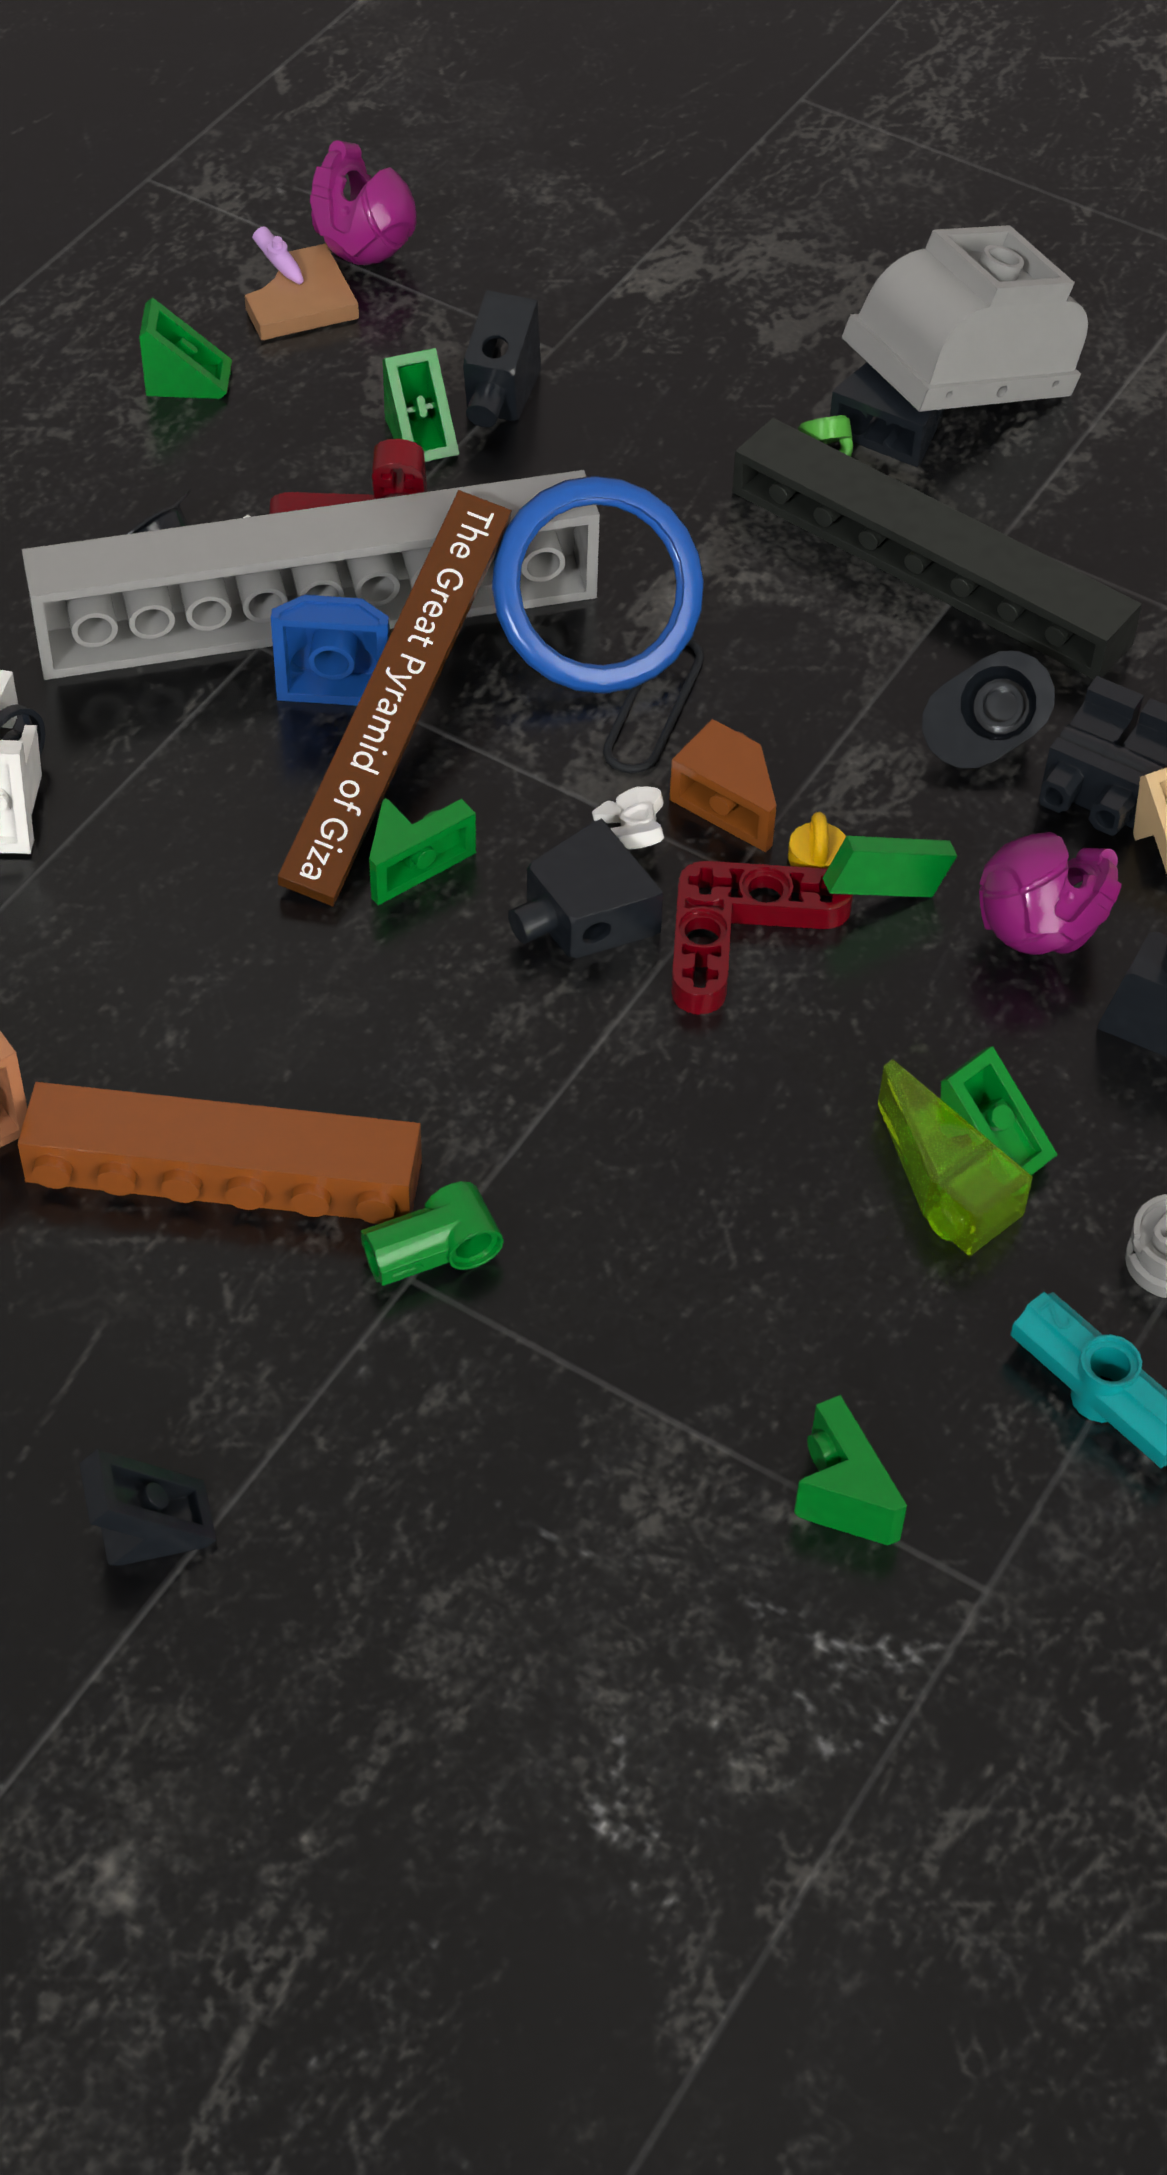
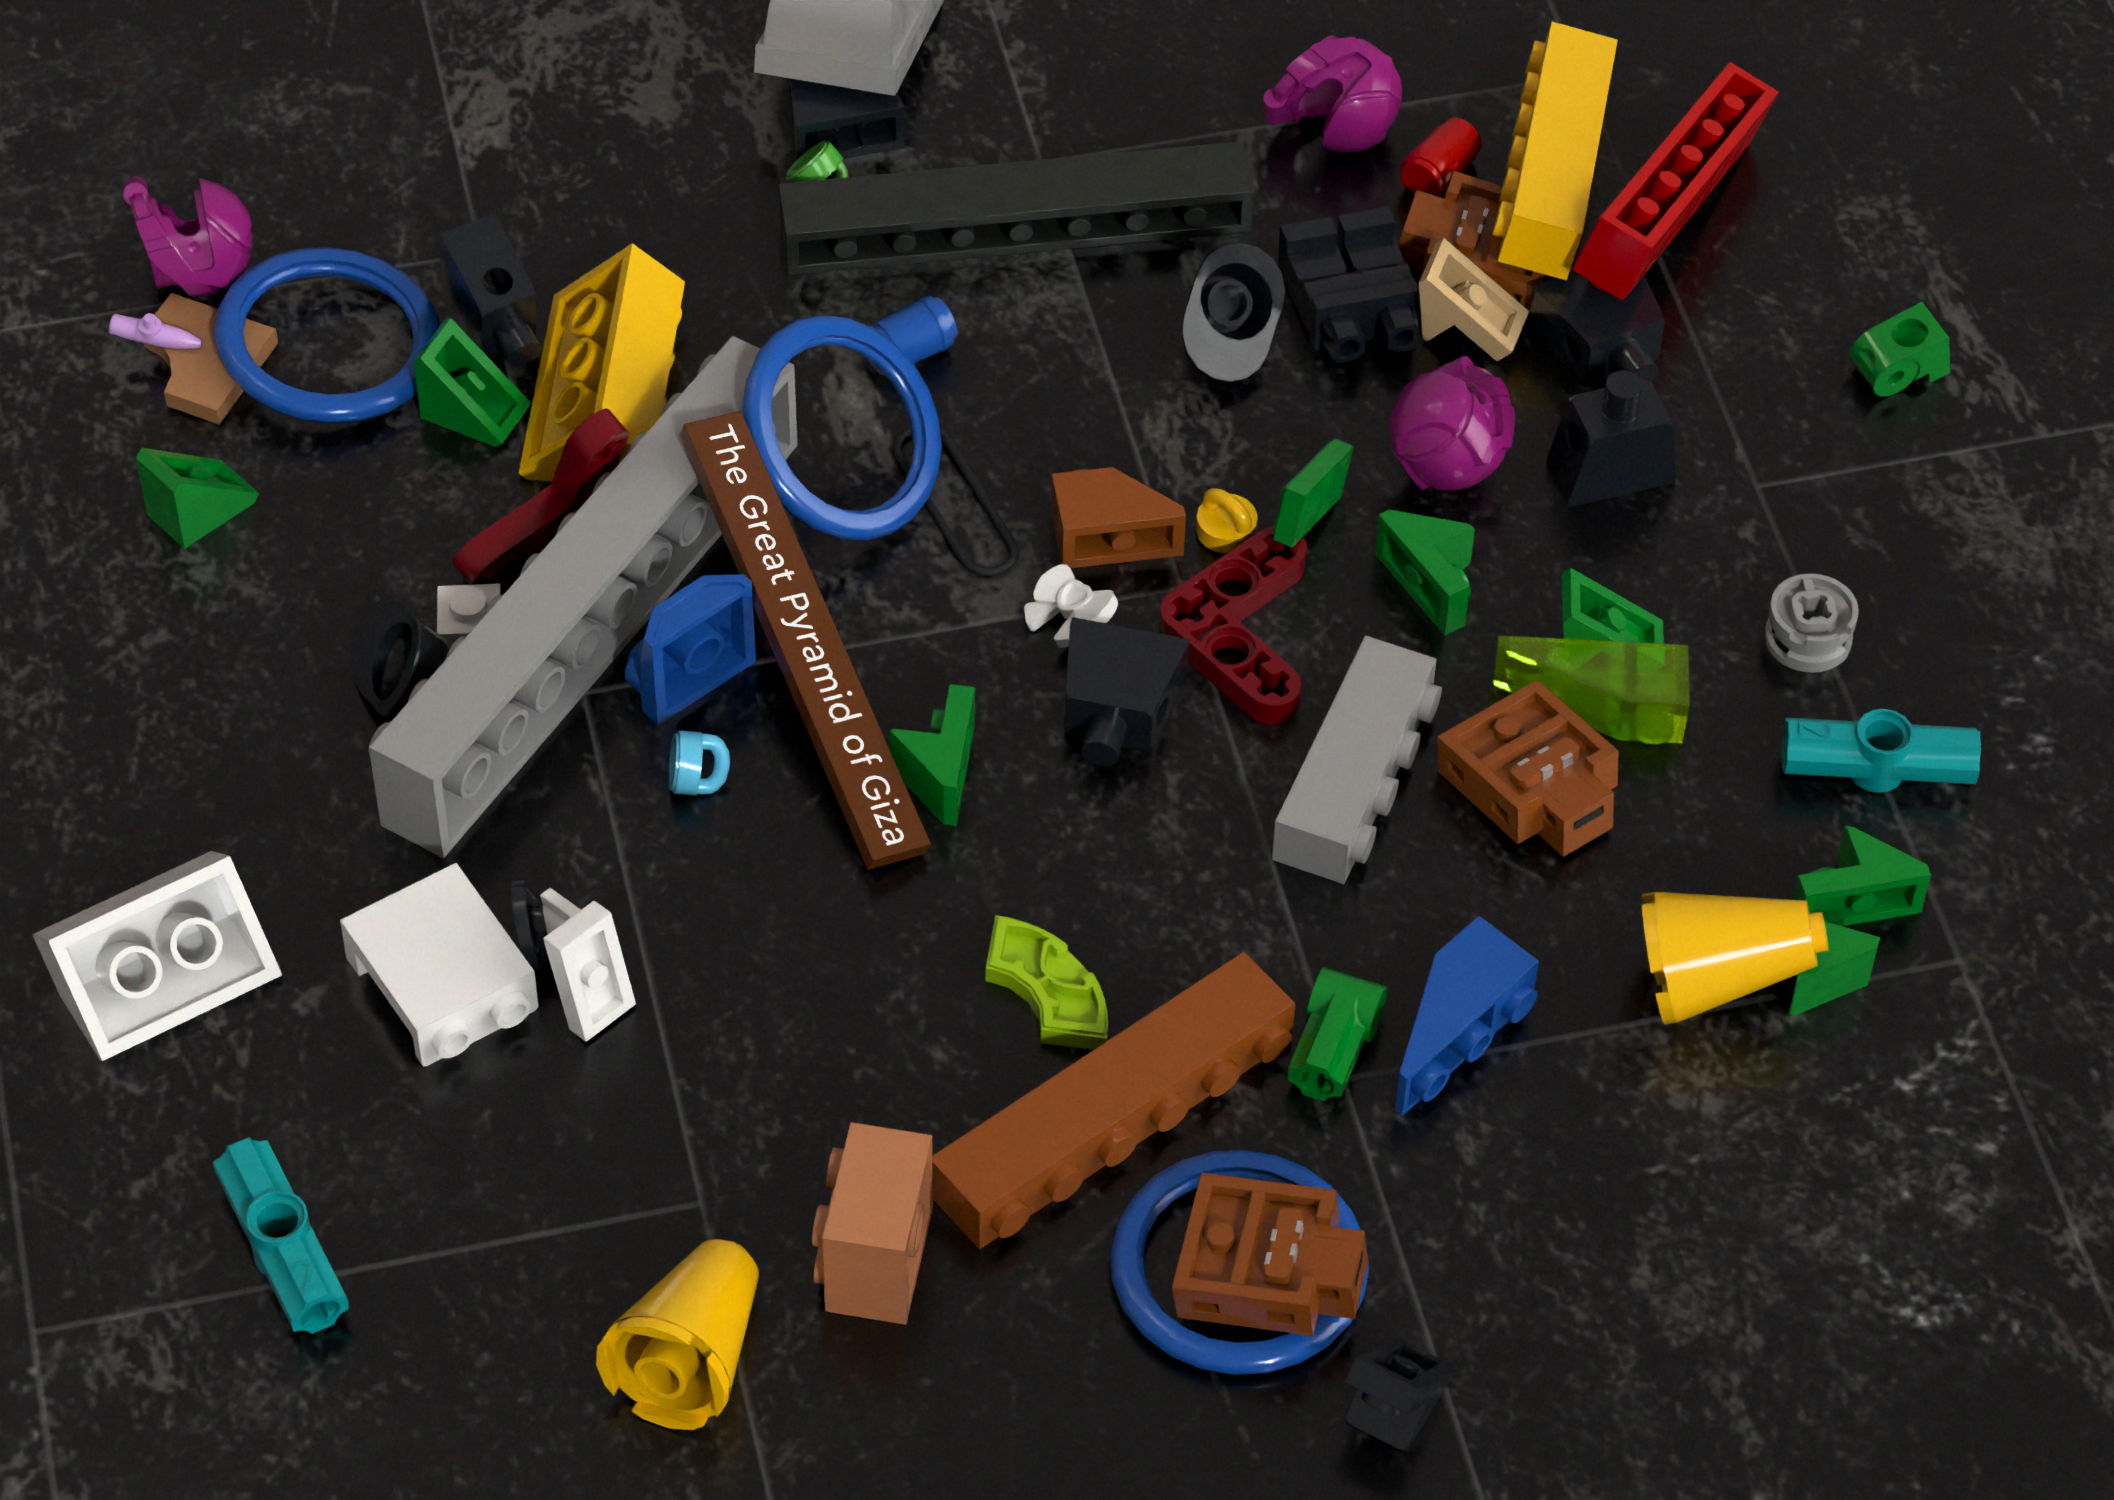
camera: 45 degrees left, 0 degrees up
(160, 1338) = (1267, 1256): none -> dark orange piece
(174, 1427) = (1164, 1331): none -> blue wedge
(249, 728) = (686, 763): none -> medium azure tile
(298, 1048) = (1051, 981): none -> lime tile
(369, 267) = (310, 263): none -> blue wedge
(541, 1292) = (1469, 995): none -> blue slope
(557, 440) = (601, 350): none -> yellow slope
(690, 1067) = (1355, 760): none -> light grey brick
(751, 576) = (919, 329): none -> blue piece
(756, 1401) = (1725, 947): none -> yellow cone
(813, 1177) = (1534, 769): none -> dark orange piece
(928, 976) = (1428, 563): none -> green slope
(965, 1471) = (1868, 885): none -> green slope

